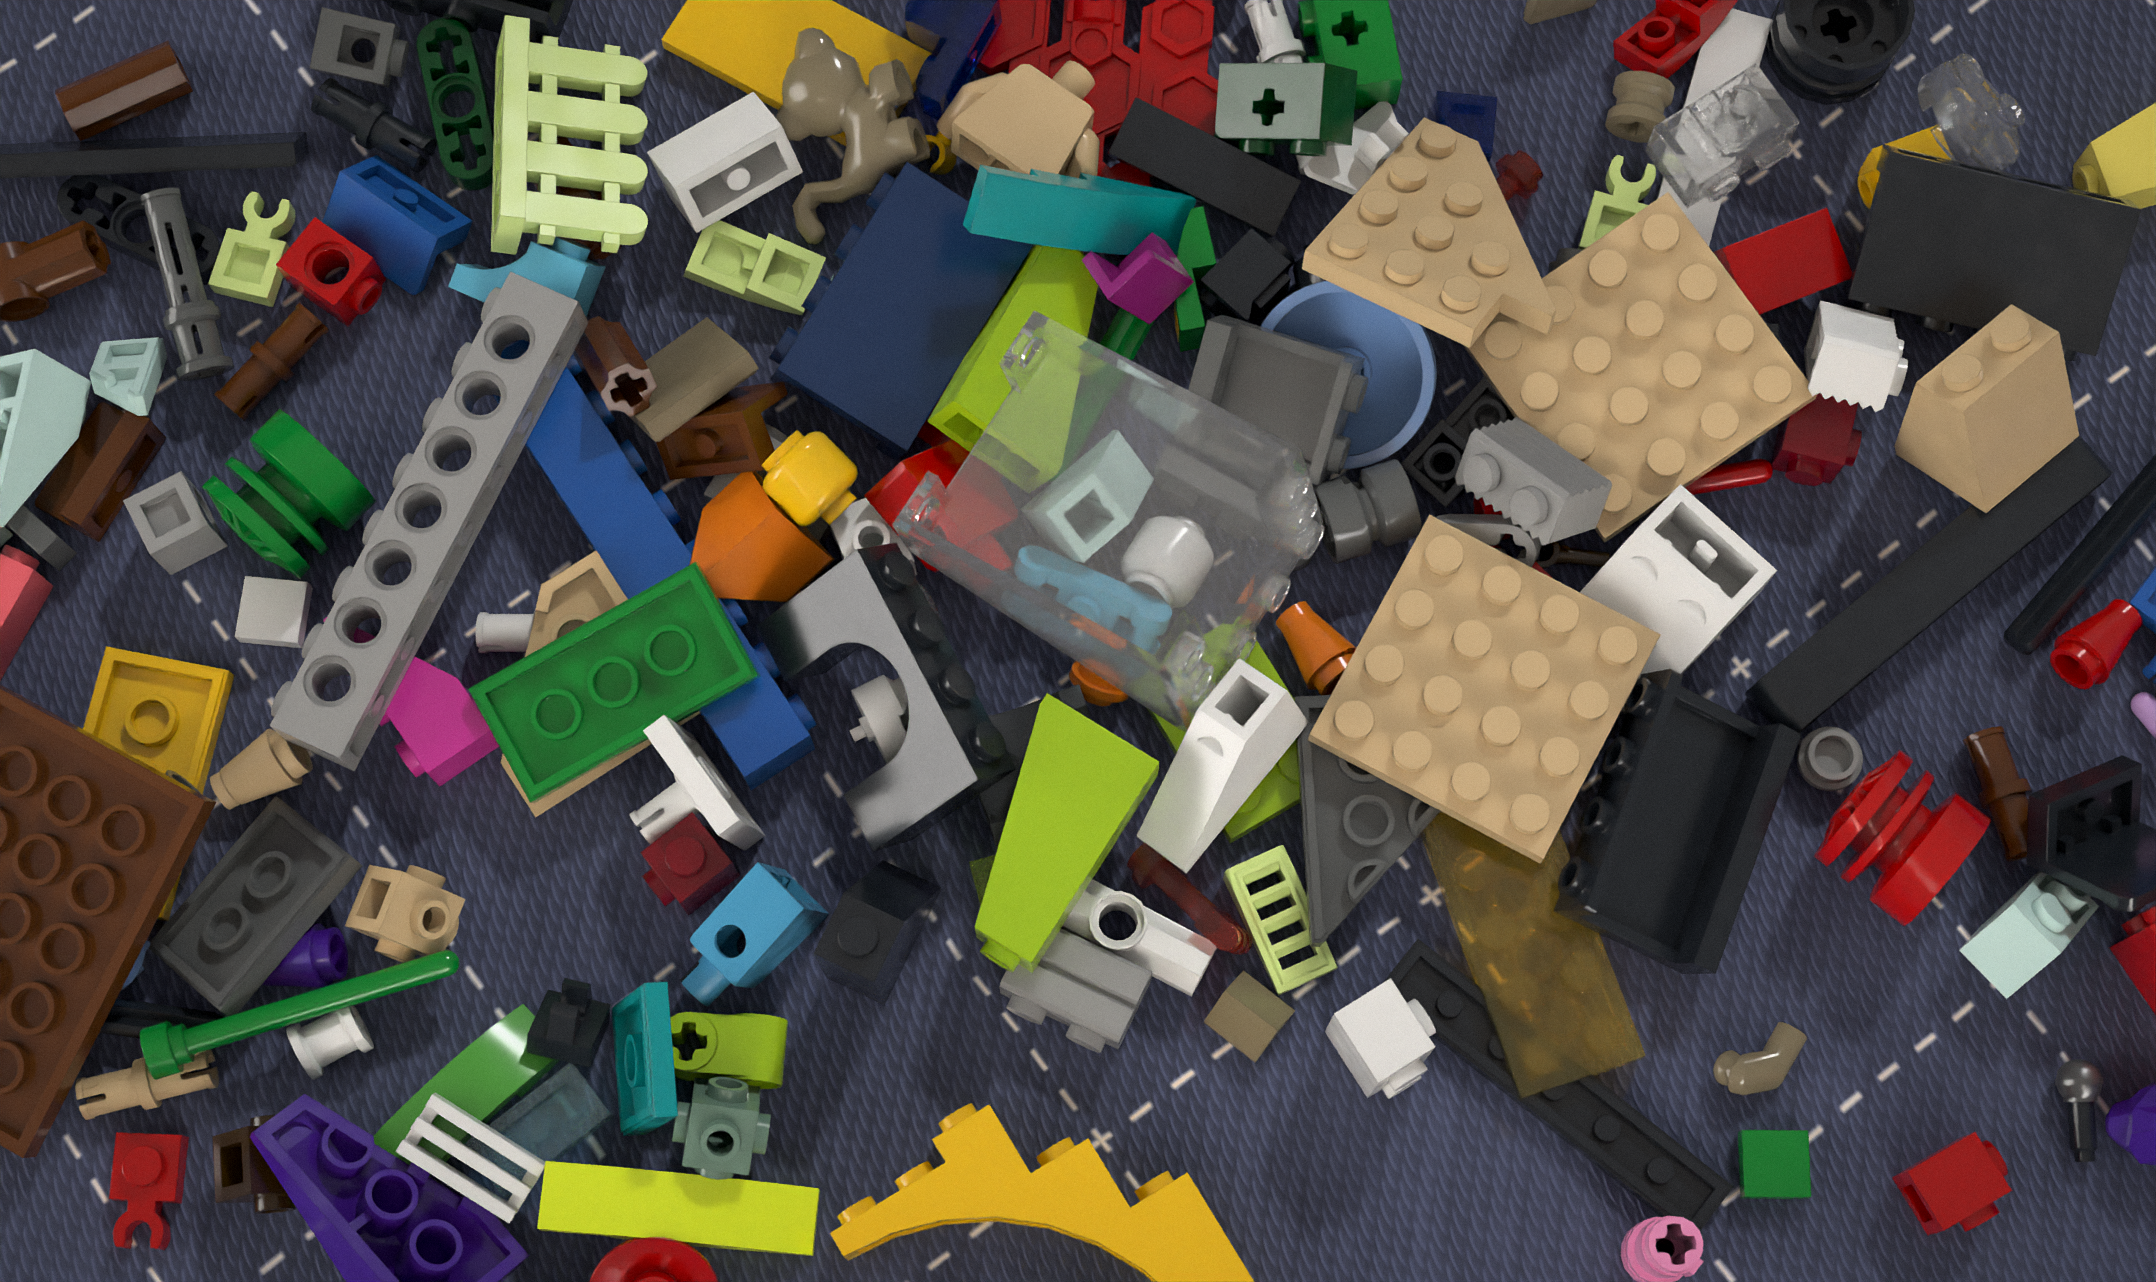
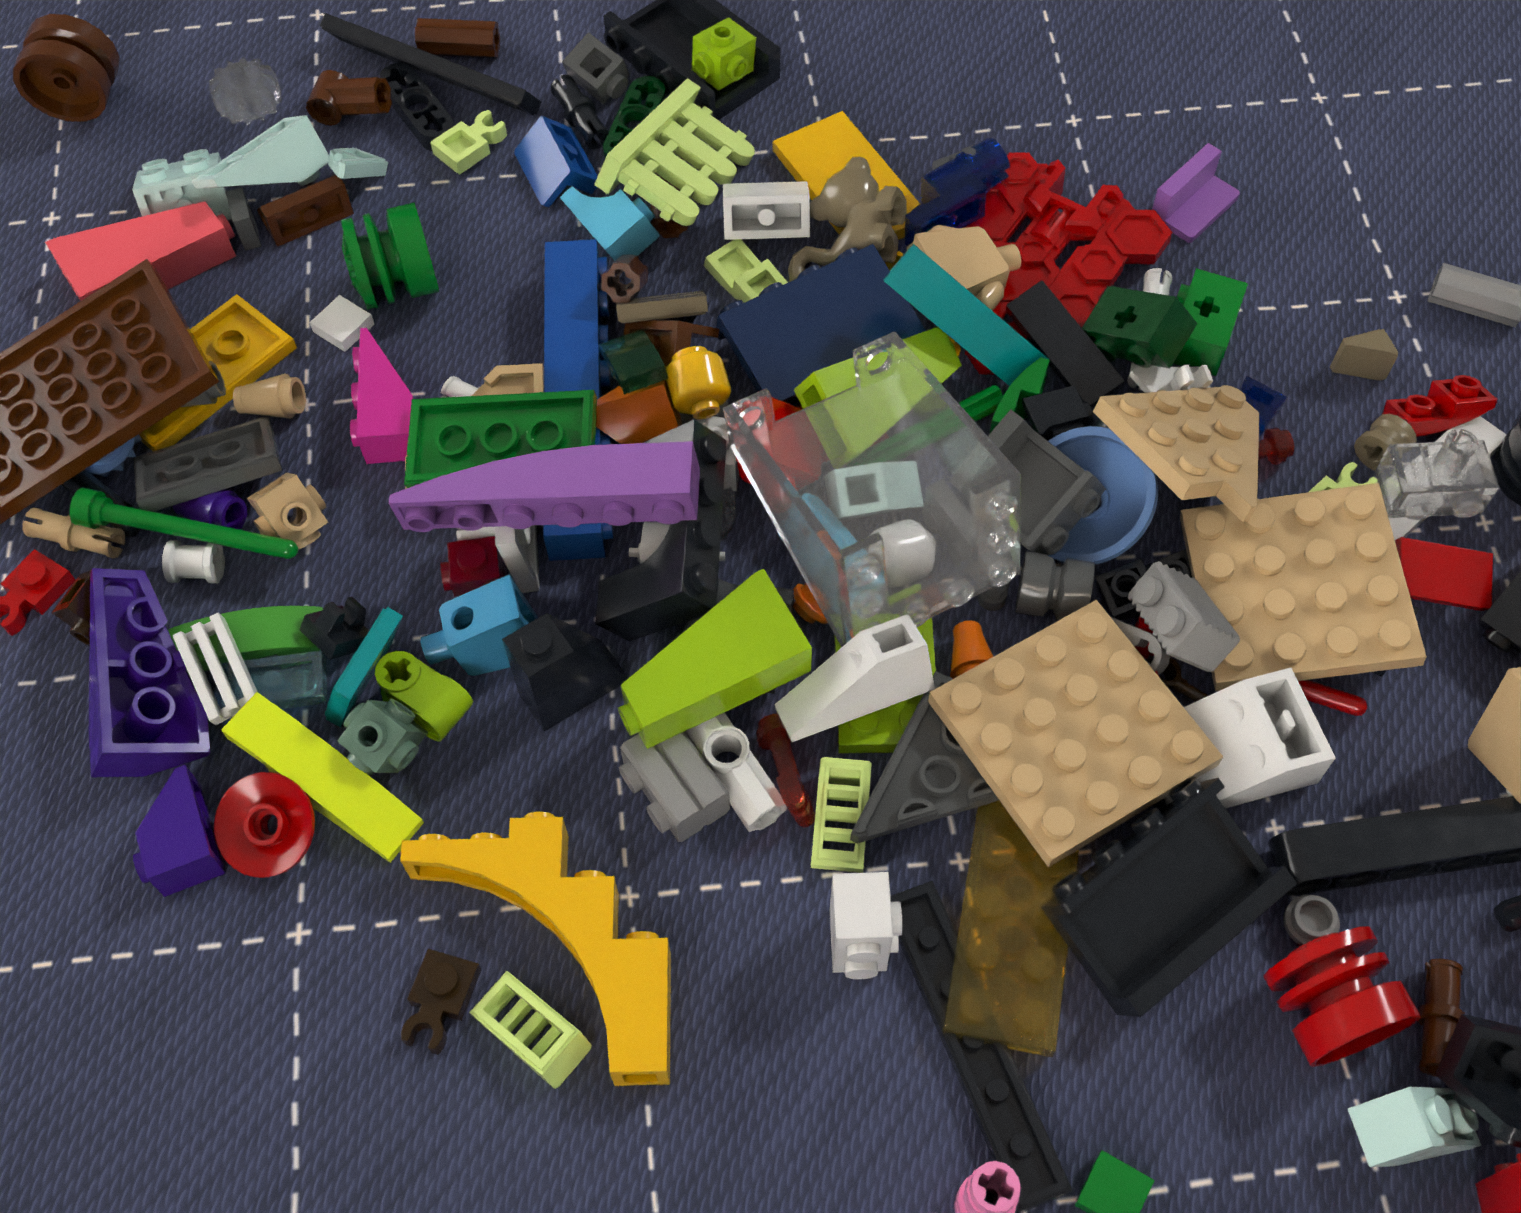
camera: 30 degrees right, 15 degrees down
(175, 523) = (317, 243): light grey brick -> none
(184, 319) = (409, 150): dark grey pin -> none
(271, 361) = (441, 196): reddish brown pin -> none
(319, 252) = (502, 167): red brick -> none
(345, 726) = (453, 300): light grey brick -> none
(711, 489) = (633, 361): none -> clear green slope
(764, 730) = (560, 488): none -> medium lavender slope
(1144, 280) = (983, 376): magenta panel -> none
(1248, 1016) = (781, 867): dark tan slope -> none
(1762, 1069) = (1140, 1114): dark tan arm -> none
(1817, 441) = (1412, 699): dark red brick -> none
(1854, 356) = (1466, 653): white brick -> none

